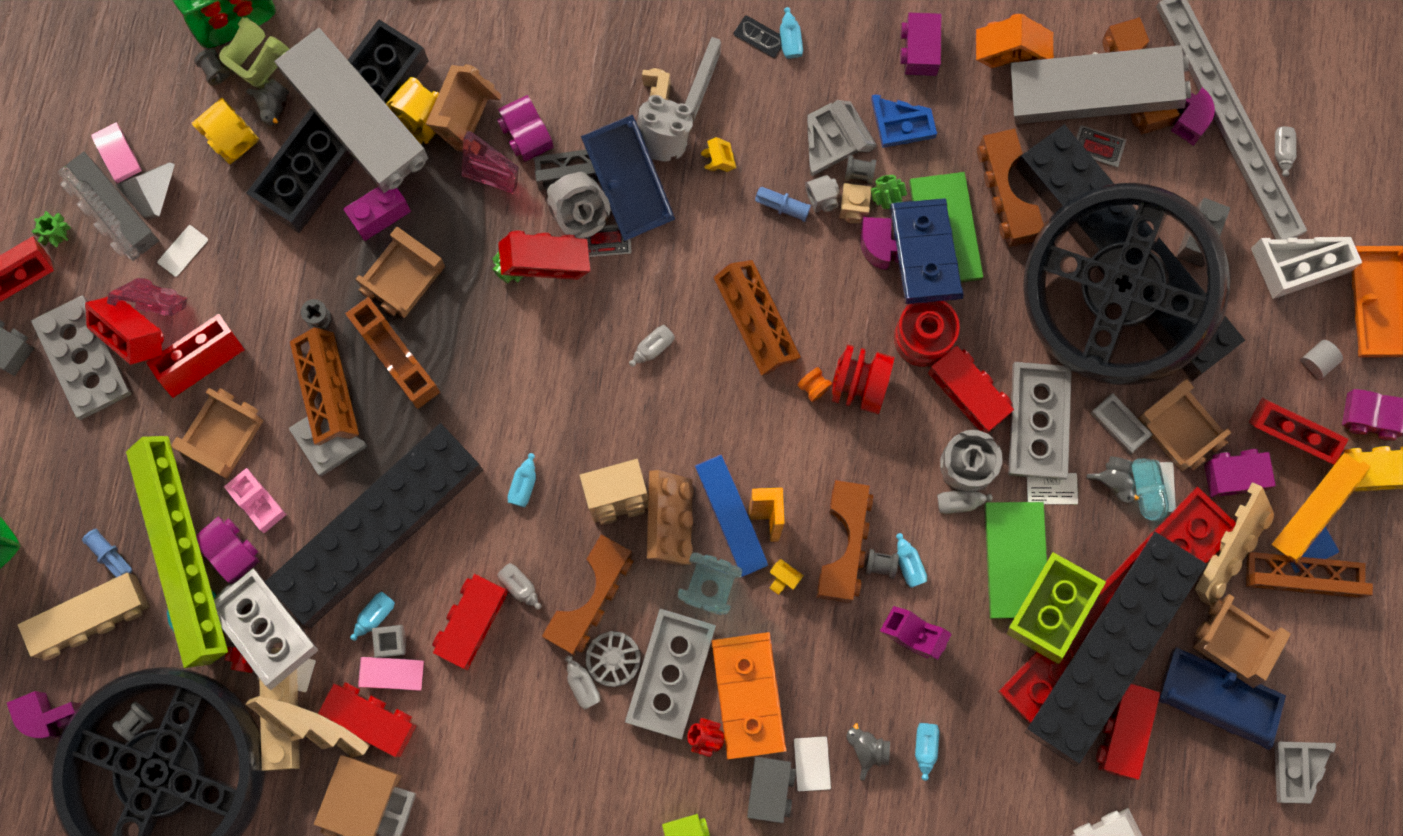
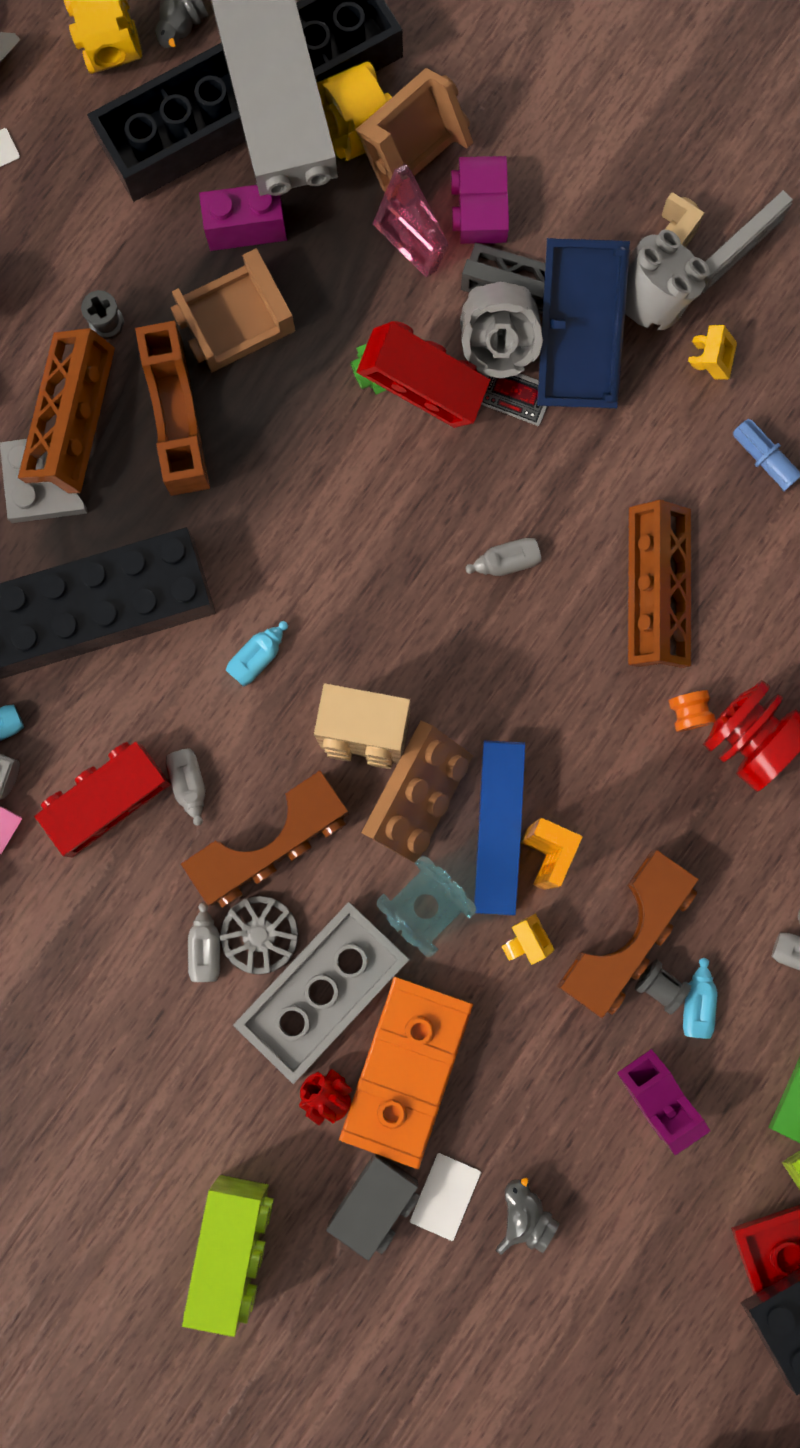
camera: 30 degrees right, 5 degrees up
(927, 747) = (603, 1254): medium azure piece -> none

